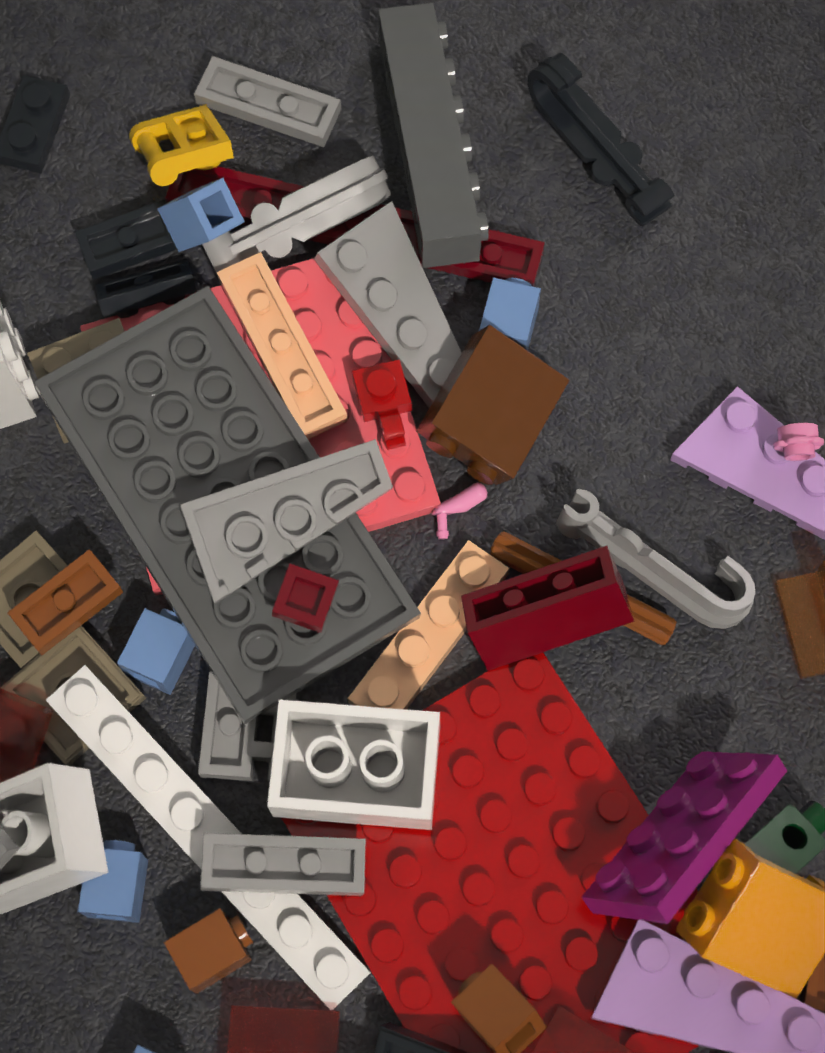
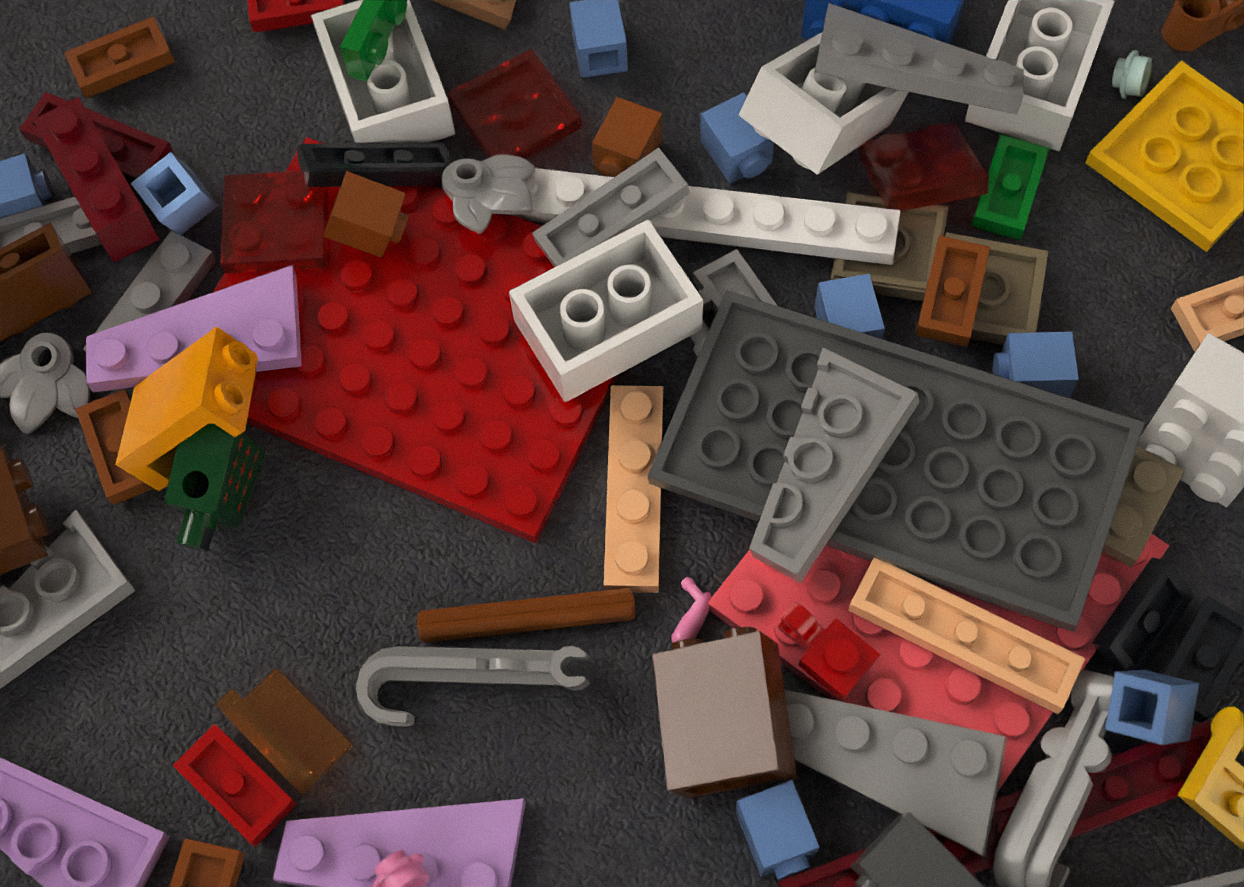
camera: 145 degrees right, 5 degrees down
(52, 510) = (1039, 361): none -> medium blue brick
(305, 598) = (750, 404): dark red plate -> none
(362, 969) = (488, 189): none -> light grey plate
(546, 608) = (537, 551): dark red brick -> none
(683, 835) = (291, 428): magenta plate -> none

